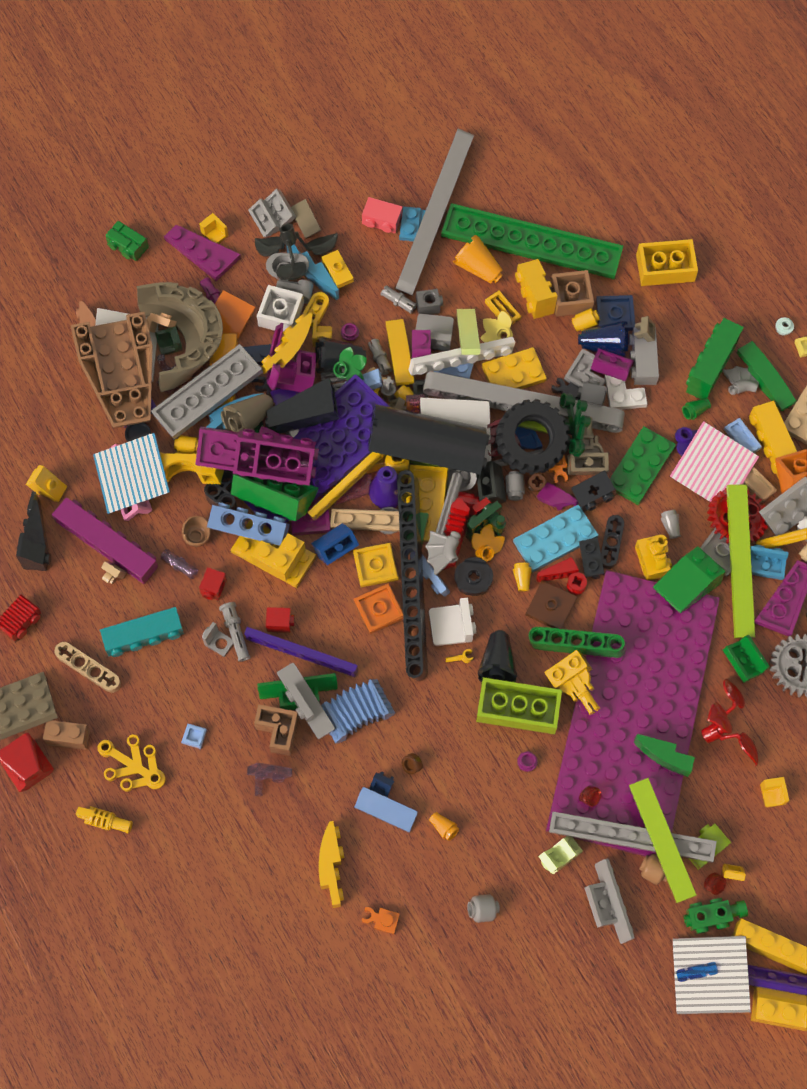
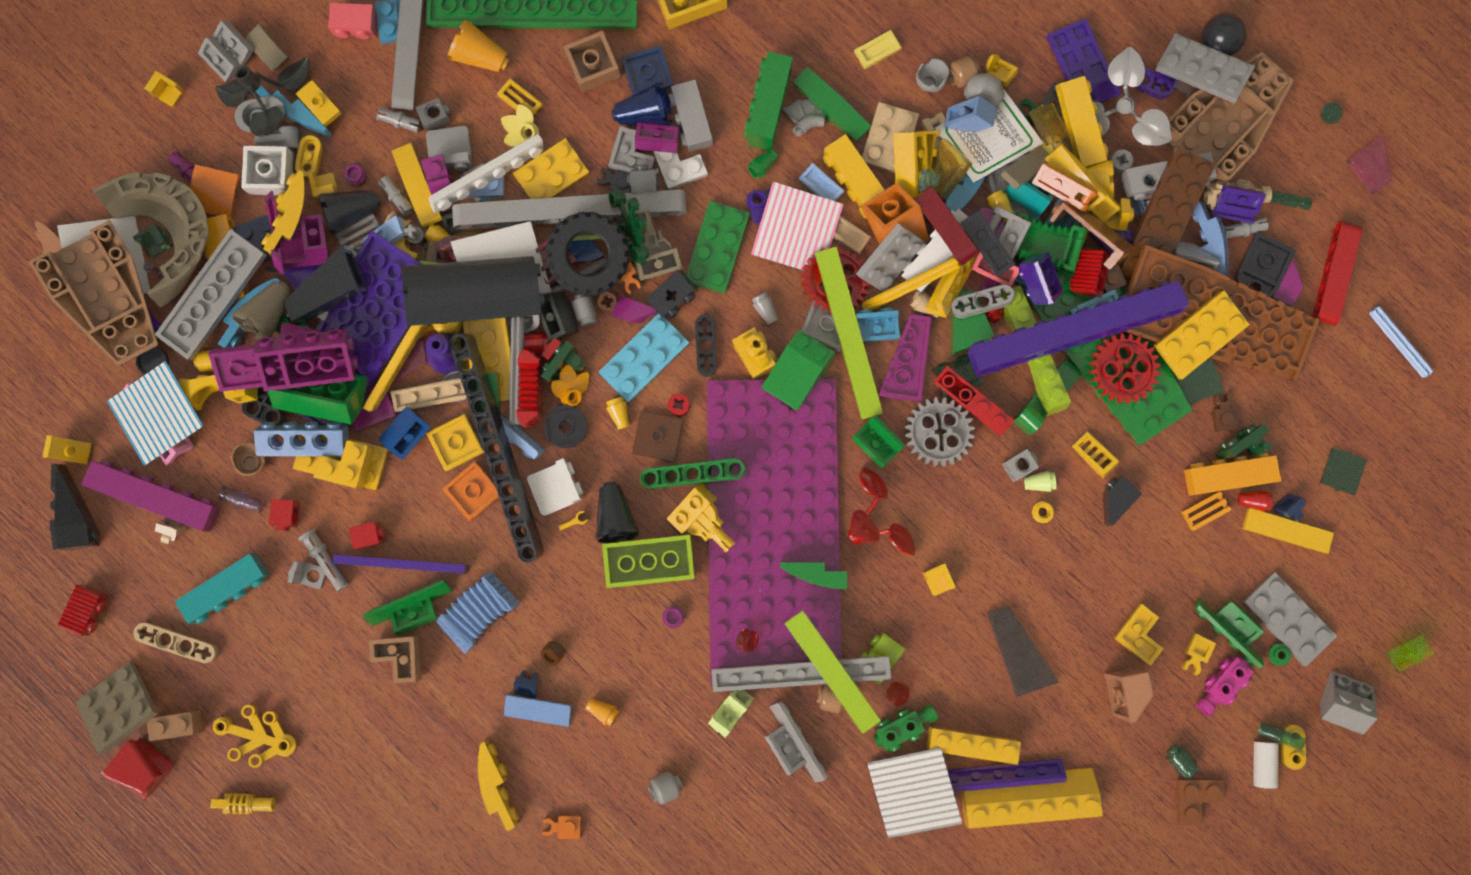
camera: 15 degrees left, 15 degrees up
(127, 241) = (68, 130): green brick -> none
(163, 319) = (134, 219): light nougat bracket -> none
(194, 736) = (313, 686): light blue tile -> none
(204, 253) = (163, 120): magenta wing -> none
(264, 771) = (393, 712): plate -> none
(305, 700) = (417, 622): light grey bracket -> none
(353, 364) = (364, 218): green plate -> none
(442, 550) = (520, 416): light grey arm -> none
(468, 332) = (486, 142): yellowish green tile -> none
(536, 289) = (550, 66): yellow wedge -> none
(558, 571) = (659, 394): red slope -> none
(586, 319) = (615, 90): yellow brick -> none
(591, 558) = (687, 372): black hinge -> none
(647, 329) = (686, 87): dark tan tile -> none
(697, 972) = (899, 793): clear blue axle -> none
(733, 872) = (914, 677): yellow tile -> none
(784, 330) = (839, 43): light aqua plate -> none

